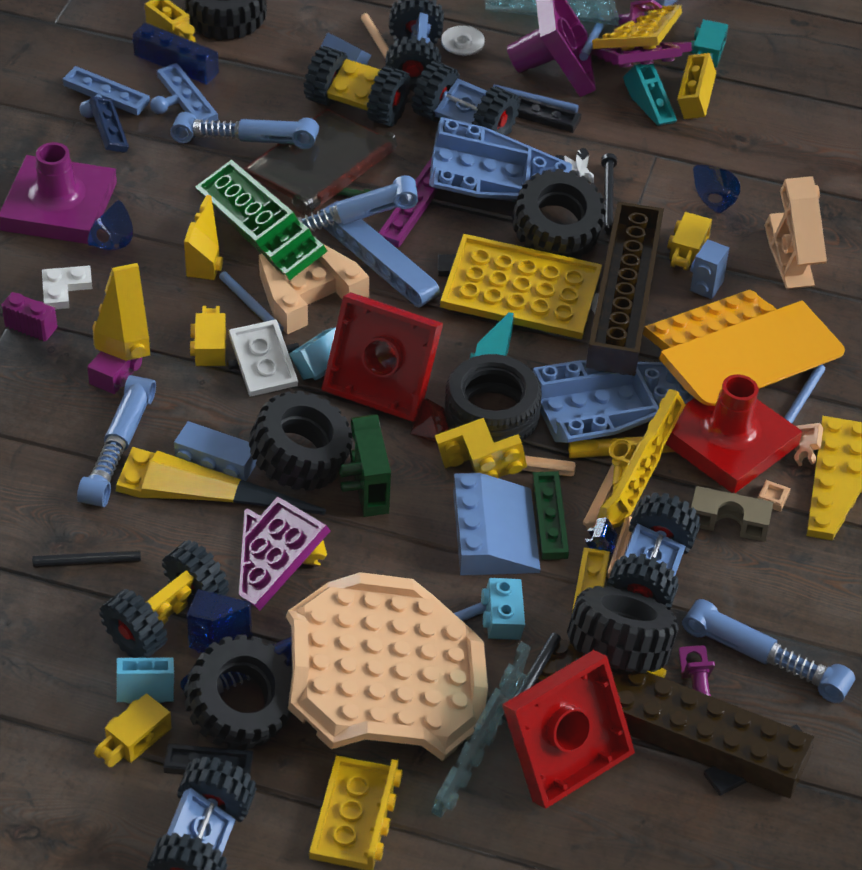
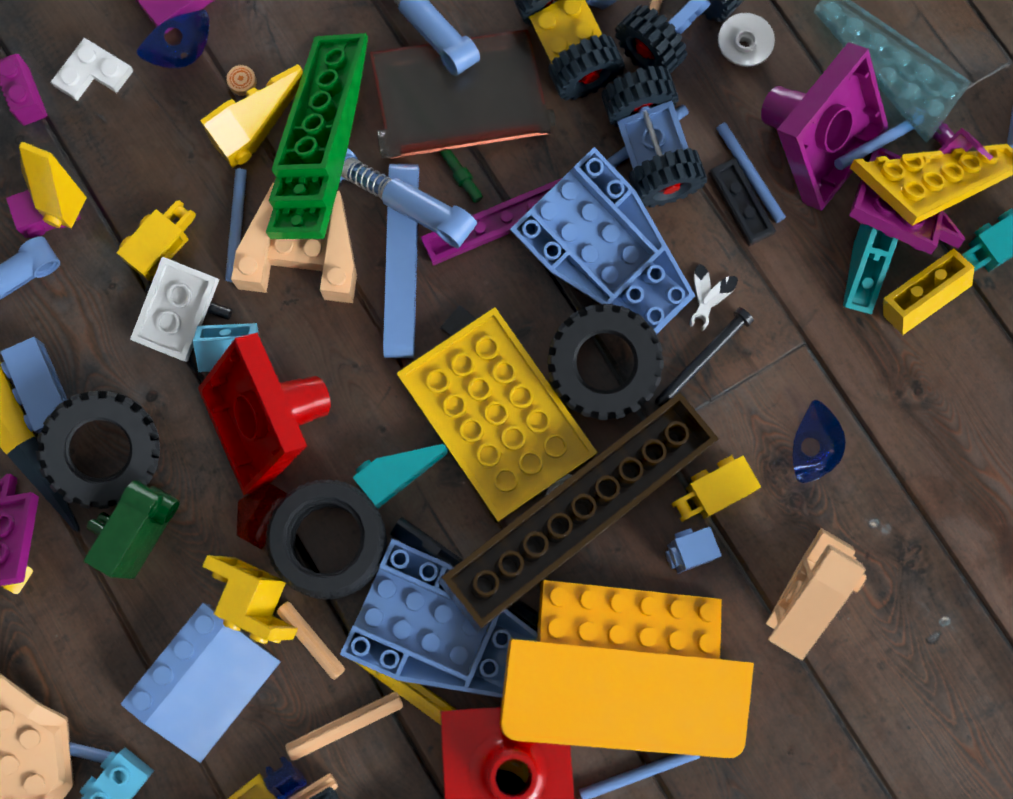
camera: 40 degrees right, 30 degrees up
(172, 232) = (241, 79): none -> light nougat tile
(550, 515) = (262, 712): dark green plate -> none
(637, 461) = (374, 739): yellow piece -> none

